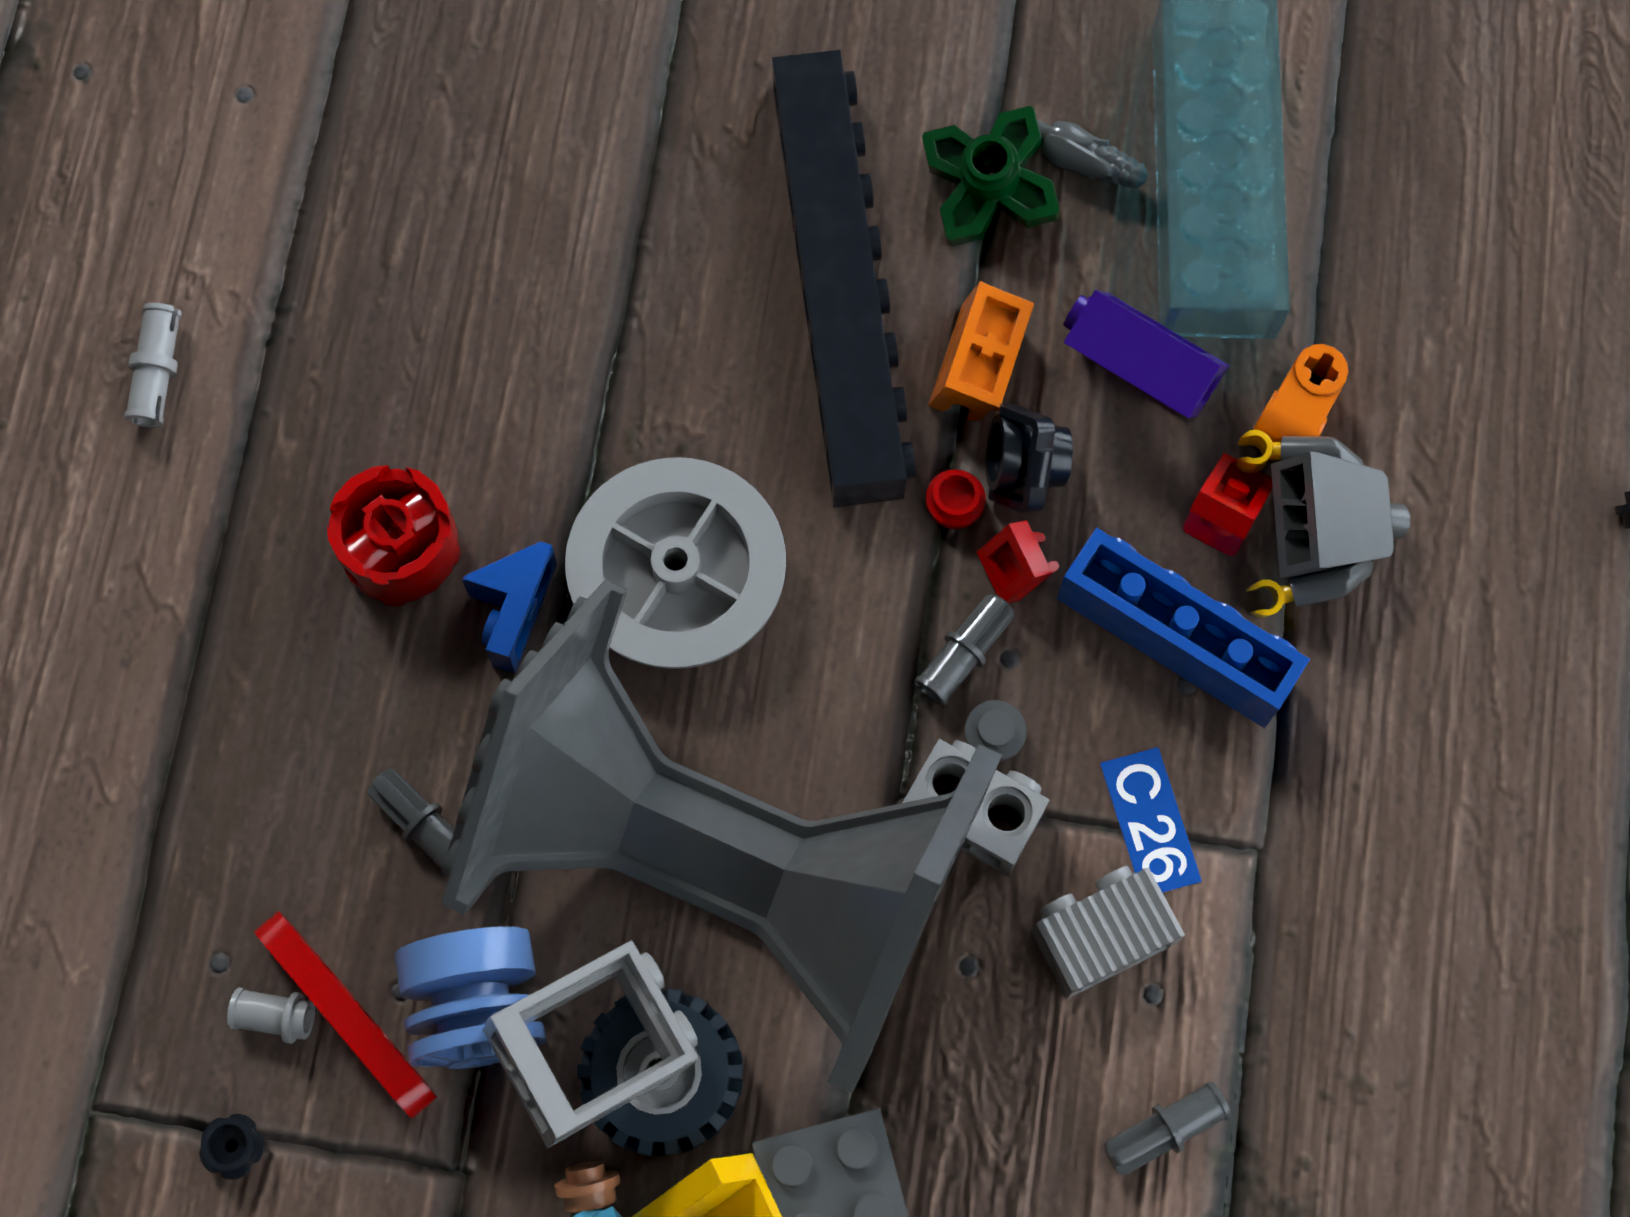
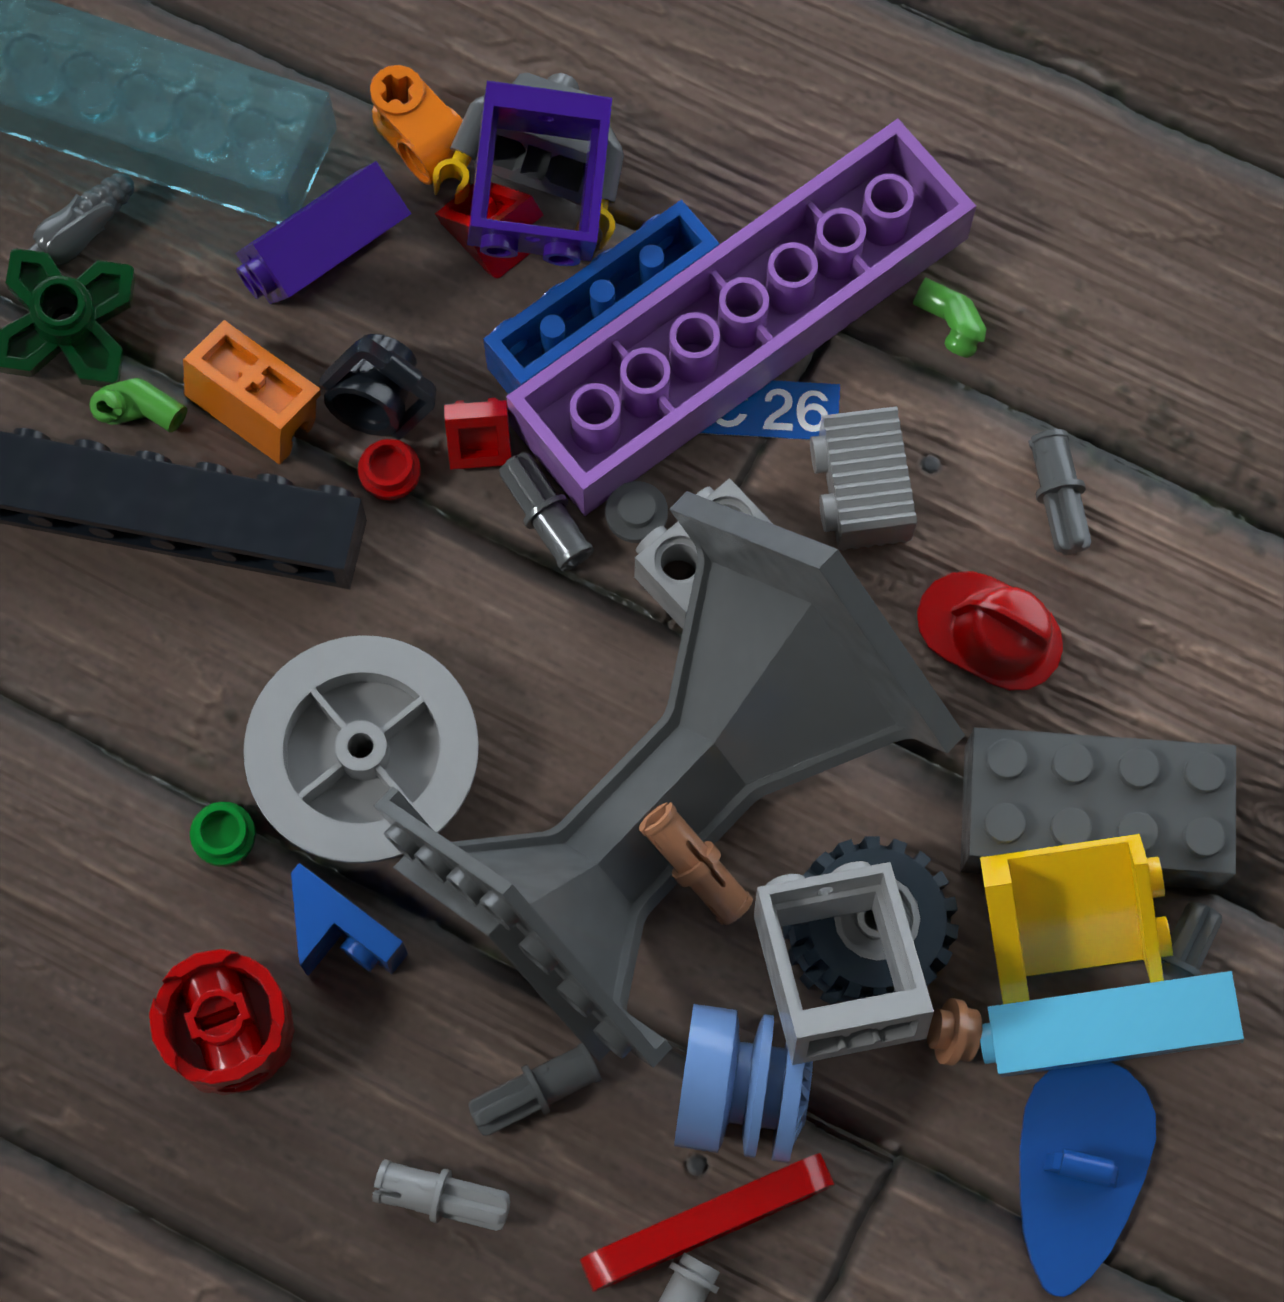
camera: 70 degrees left, 0 degrees up
(303, 771) = (441, 1196): none -> light grey axle
(568, 478) = (222, 834): none -> green plate
(681, 857) = (696, 863): none -> nougat pin
(938, 262) = (136, 400): none -> bright green arm
(1002, 1105) = (990, 630): none -> red piece
(1229, 763) = (740, 316): none -> medium lavender brick
(1315, 972) = (959, 314): none -> bright green arm
(1332, 497) = (550, 114): none -> dark purple window

